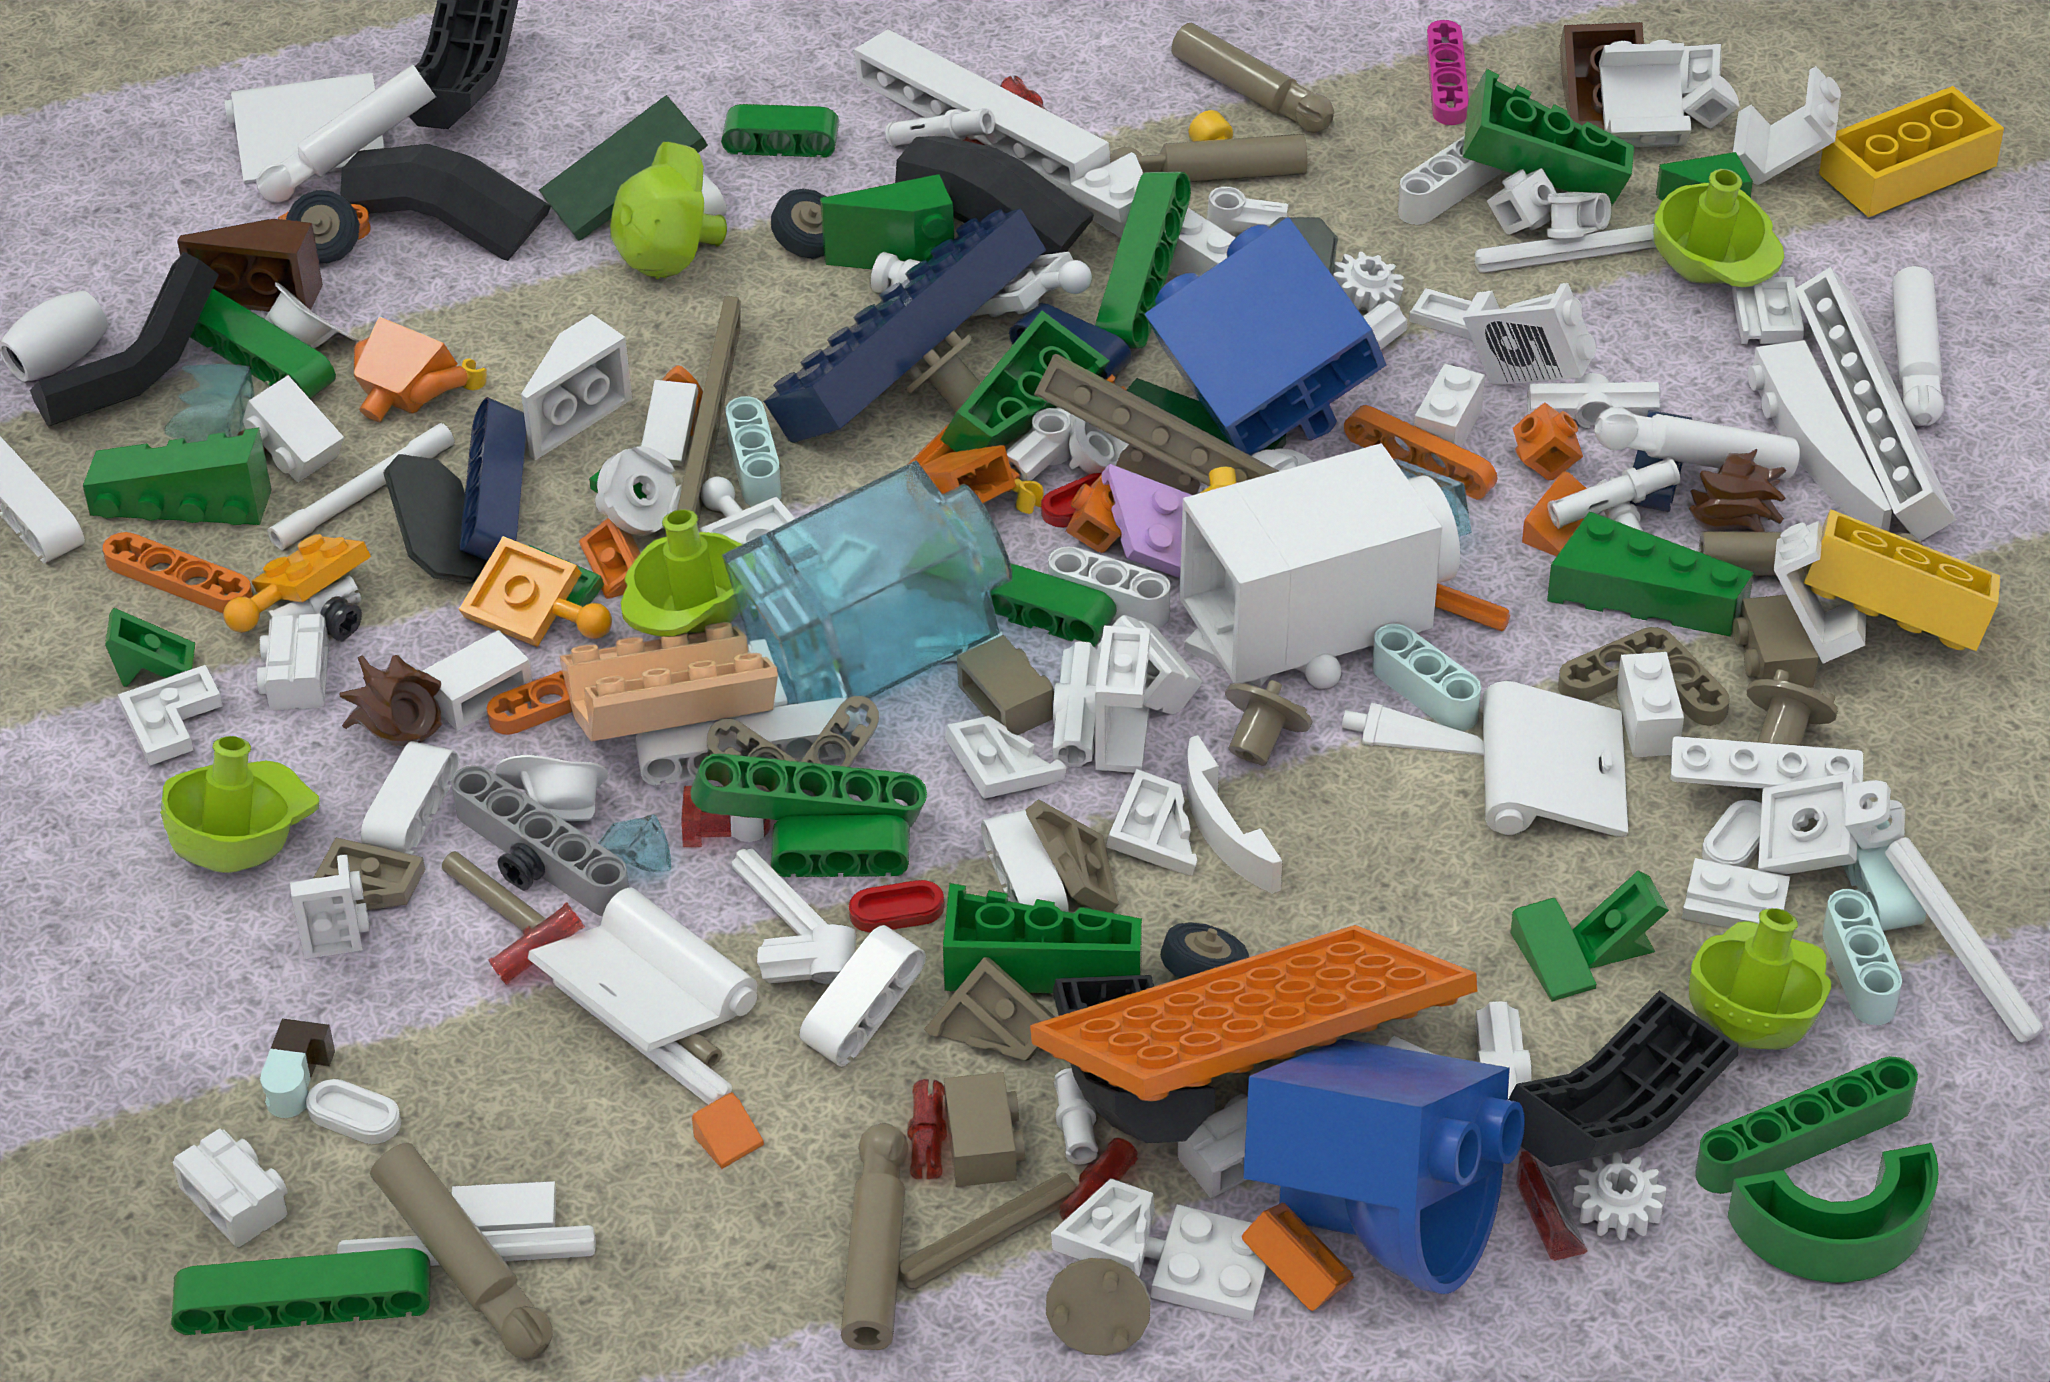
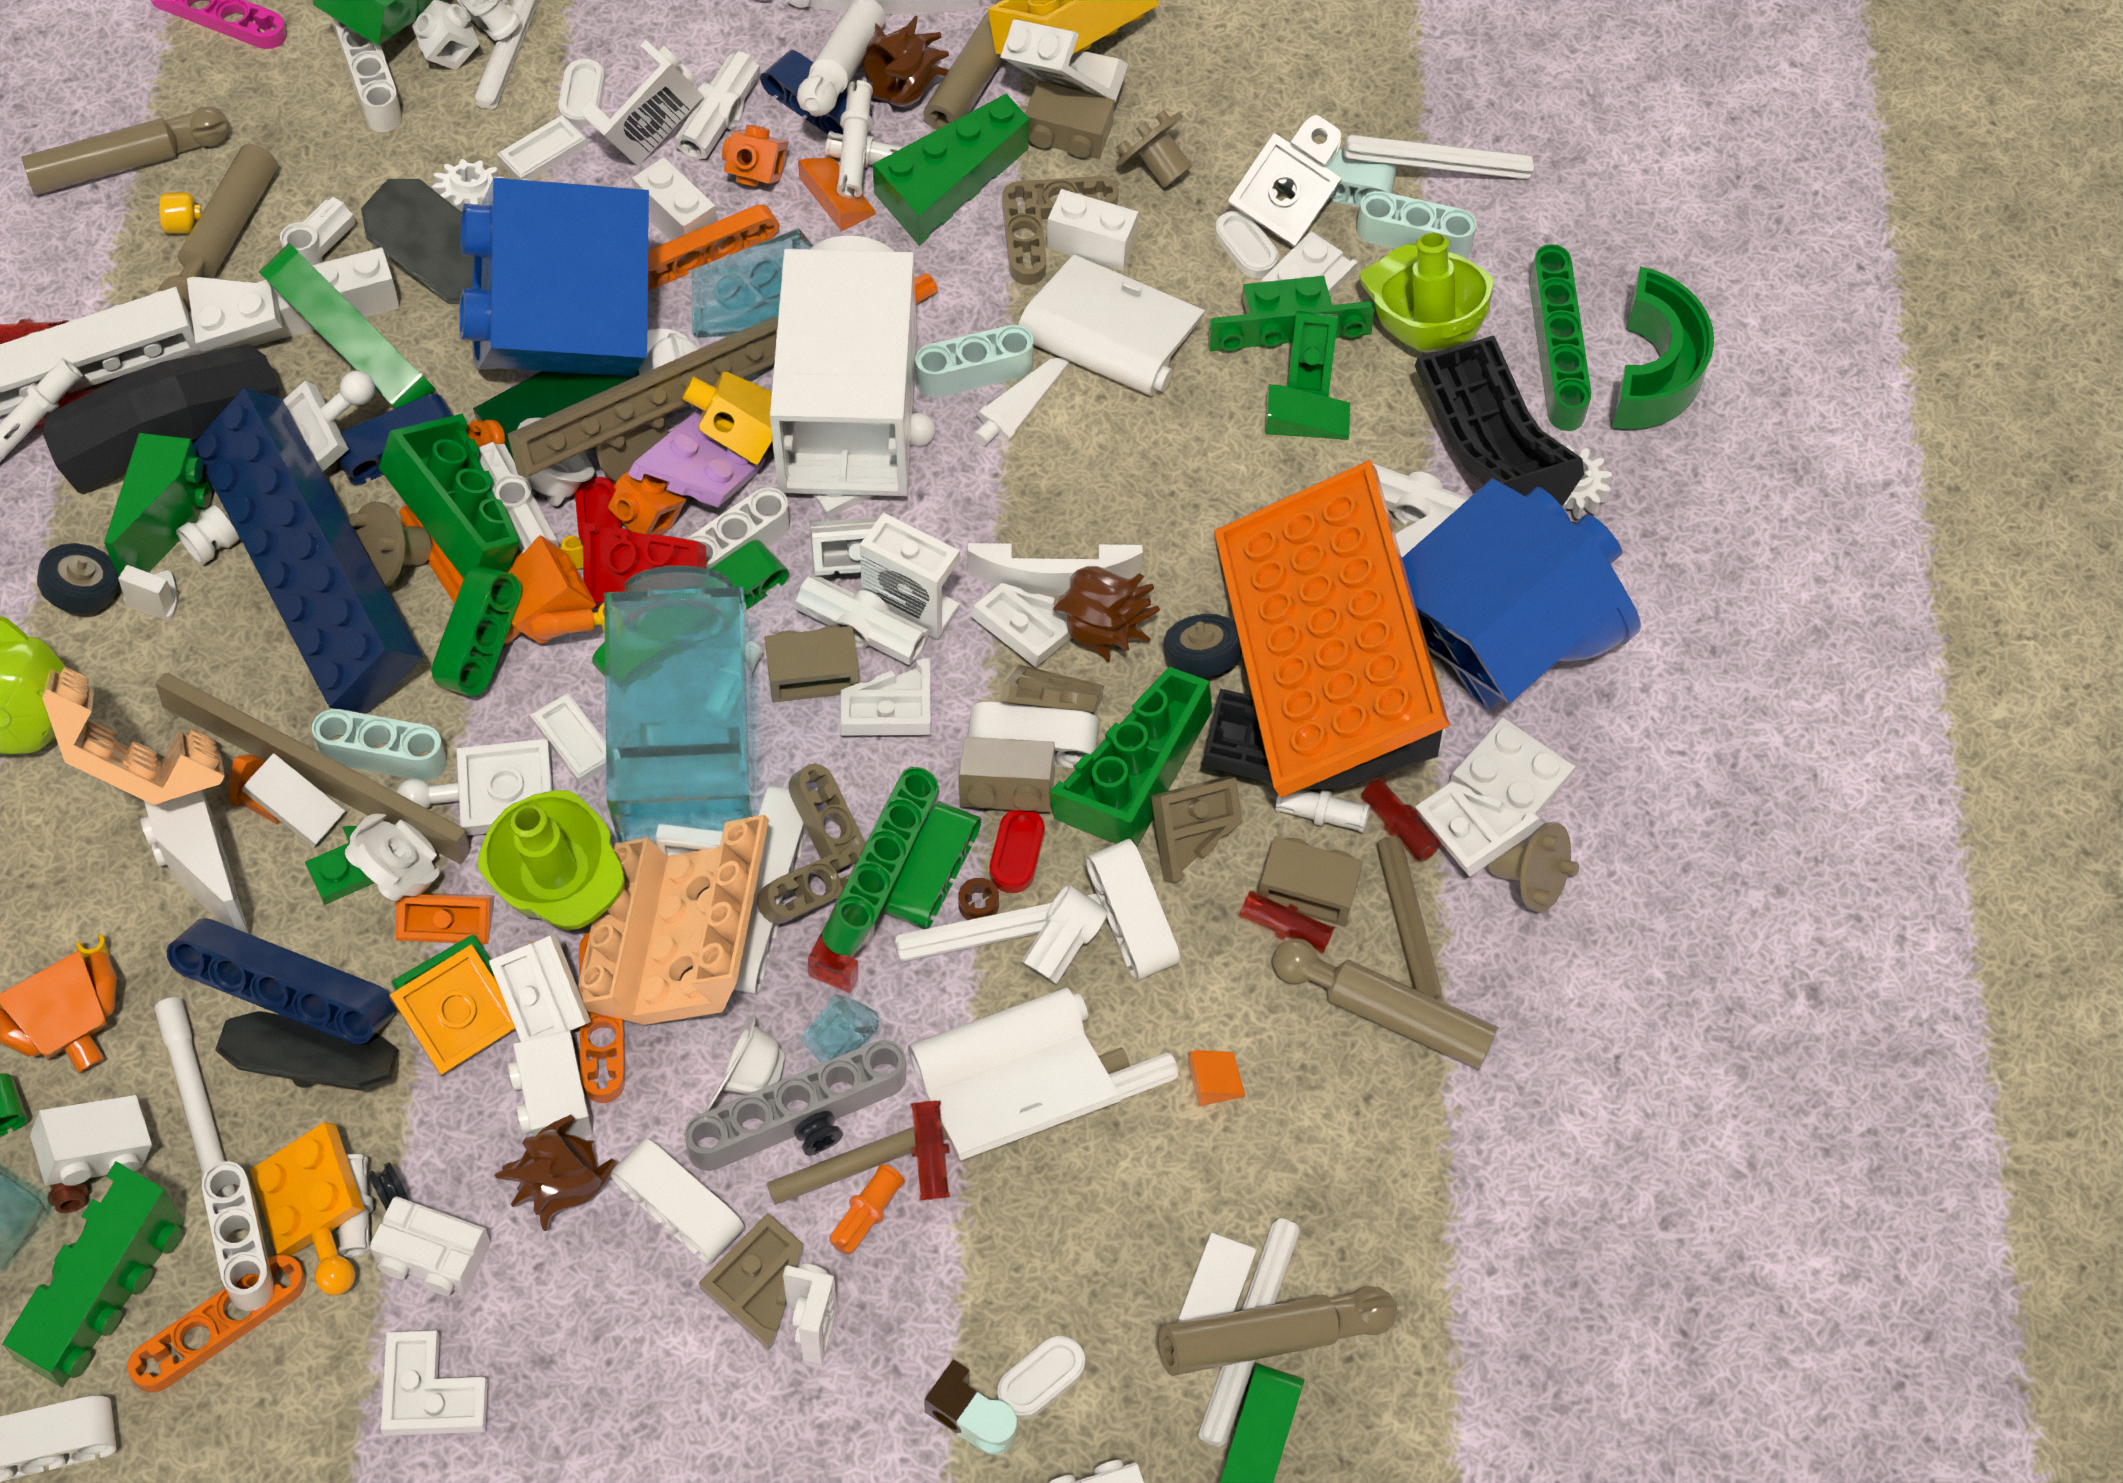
camera: 70 degrees left, 15 degrees up
(140, 645) = (335, 1379): green slope -> none
(233, 810) = (629, 1359): lime piece -> none
(243, 538) = (227, 1216): none -> white beam
(461, 926) = (866, 1209): none -> orange axle
(556, 623) = (539, 989): none -> white plate
(612, 263) = (187, 767): none -> light nougat slope
(823, 275) = (149, 592): none -> white tile
(827, 885) = (978, 885): none -> reddish brown bush
(907, 441) = (476, 630): none -> green beam
(961, 851) = (1006, 774): none -> piece
(1031, 528) = (618, 554): none -> red wing
(1190, 860) = (1105, 609): none -> reddish brown hair
(1263, 720) = (969, 494): dark tan piece -> none
(1297, 1256) = (1541, 713): orange slope -> none
(1678, 880) = (1272, 314): none -> green bracket
(1756, 763) = (1210, 187): white bracket -> none

